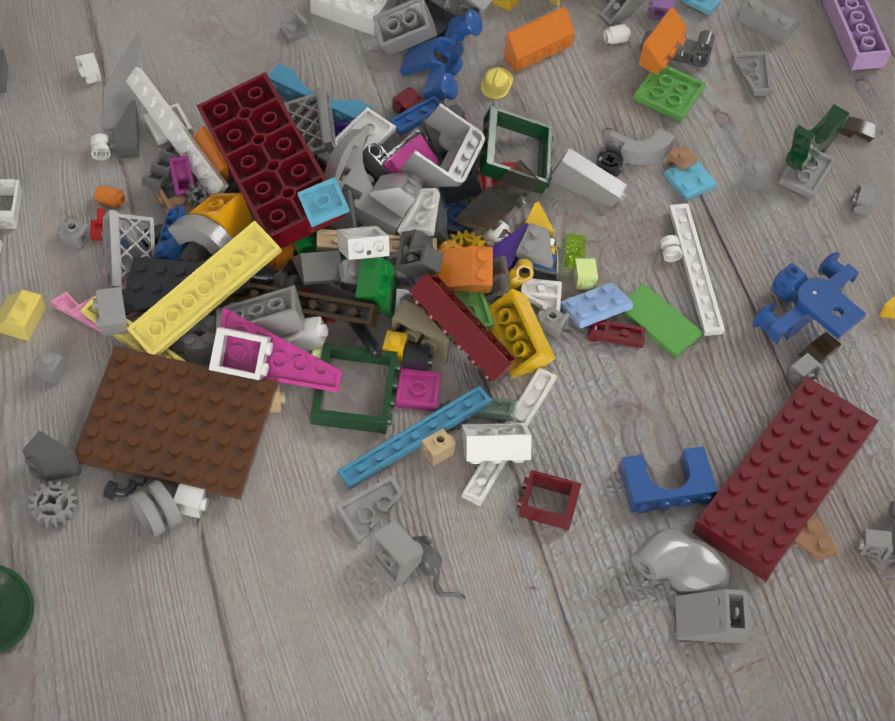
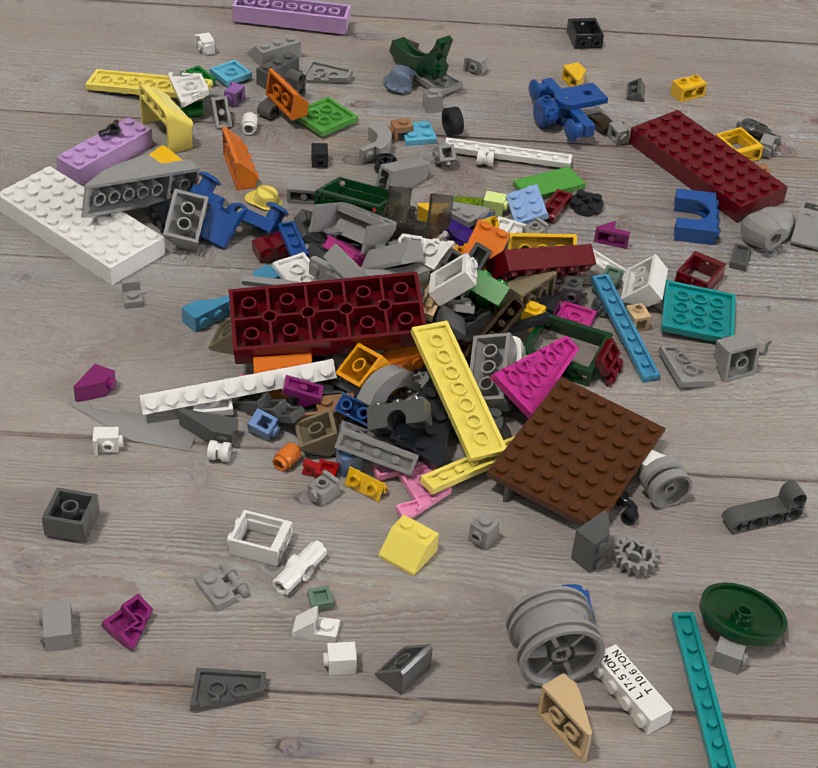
camera: 70 degrees left, 15 degrees down
(91, 270) = (365, 484): none -> yellow hinge
(111, 311) = (449, 463): light grey brick -> none
(141, 165) = (260, 420): none -> medium blue brick
(142, 203) = (318, 433): none -> dark tan slope
(153, 252) = (382, 415): none -> dark grey arch
(159, 629) = (767, 512): none -> dark grey beam
(160, 39) = (95, 383): none -> magenta slope
(190, 193) = (332, 382): dark grey gear -> none
(219, 352) = (520, 385): white window -> none
(323, 202) = (416, 277): medium azure plate -> none
(340, 424) = (609, 361): none -> dark red plate
(455, 374) = (572, 289): none -> dark grey brick
(474, 508) = (697, 311): none -> teal plate
(518, 101) = (301, 191): none -> light grey slope
(584, 395) = (608, 235): none -> magenta slope
(591, 104) = (319, 155): none -> black brick
(614, 543) = (740, 257): none -> dark grey tile
(642, 354) = (586, 203): none -> black plate
(650, 208) = (449, 152): none -> light grey brick
(719, 200) = (452, 121): none -> black tyre
(729, 29) = (280, 65): none -> dark grey brick
(777, 136) = (399, 79): none -> sand blue hair
(843, 523) = (751, 147): none -> yellow window

